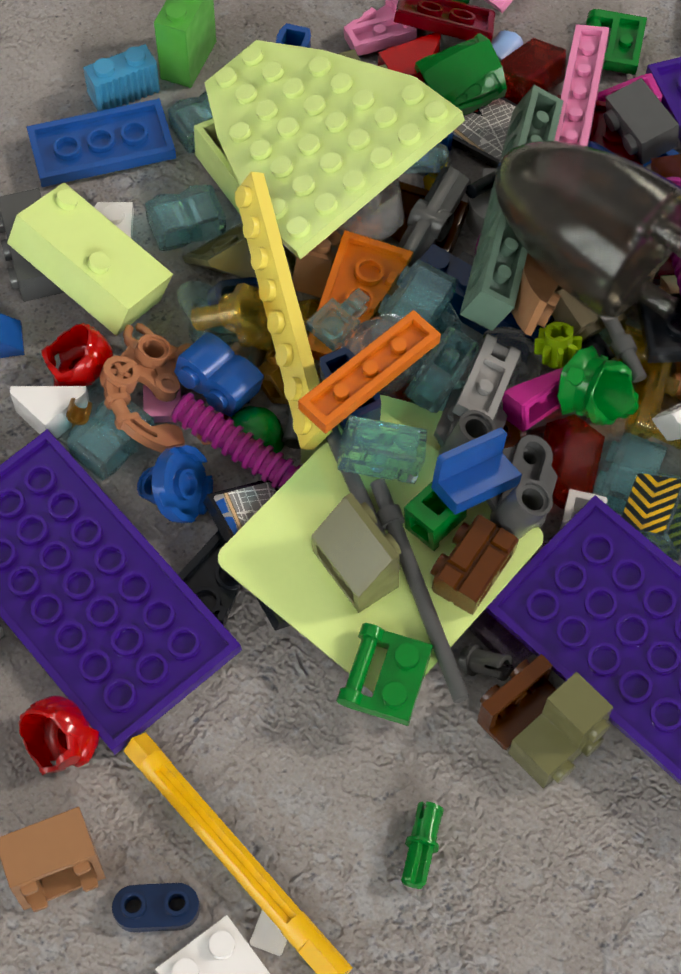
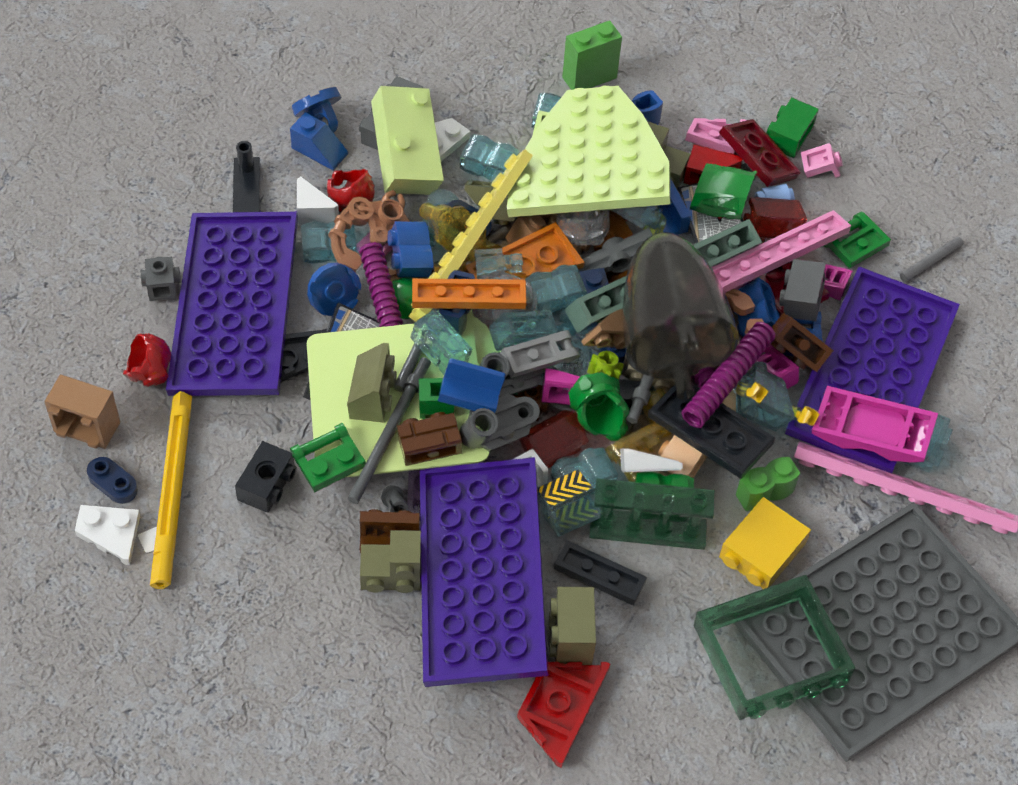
camera: 40 degrees right, 5 degrees down
(78, 415) = (318, 215): pearl gold hand -> none
(101, 142) = (487, 87): blue plate -> none
(122, 78) = (534, 60): dark azure brick -> none
(326, 777) = (266, 461): none -> black brick
(422, 844) = (266, 559): green axle -> none

